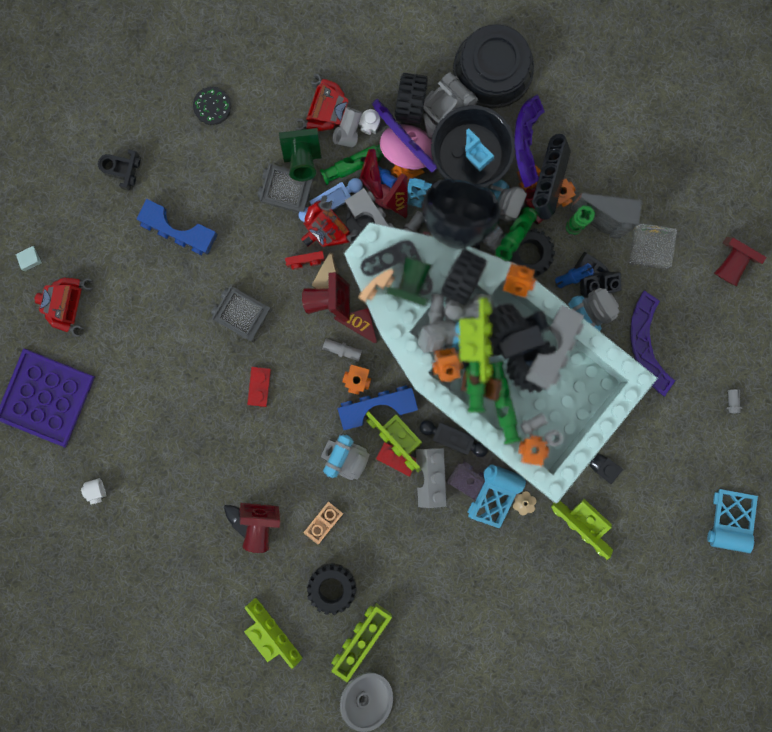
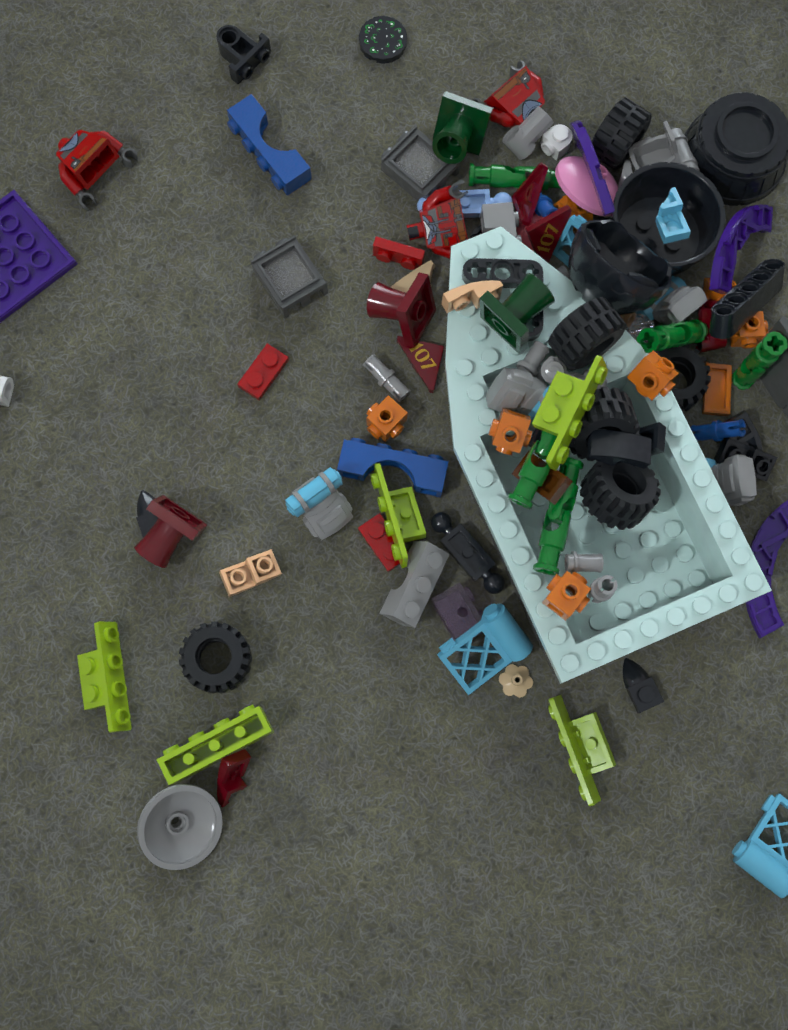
camera: 20 degrees right, 10 degrees down
(28, 258) = (79, 98): light aqua slope -> none
(380, 655) = (230, 775): none -> dark red slope
(546, 367) = (638, 490): light grey arch -> none
(562, 245) = (718, 395): none -> orange tile

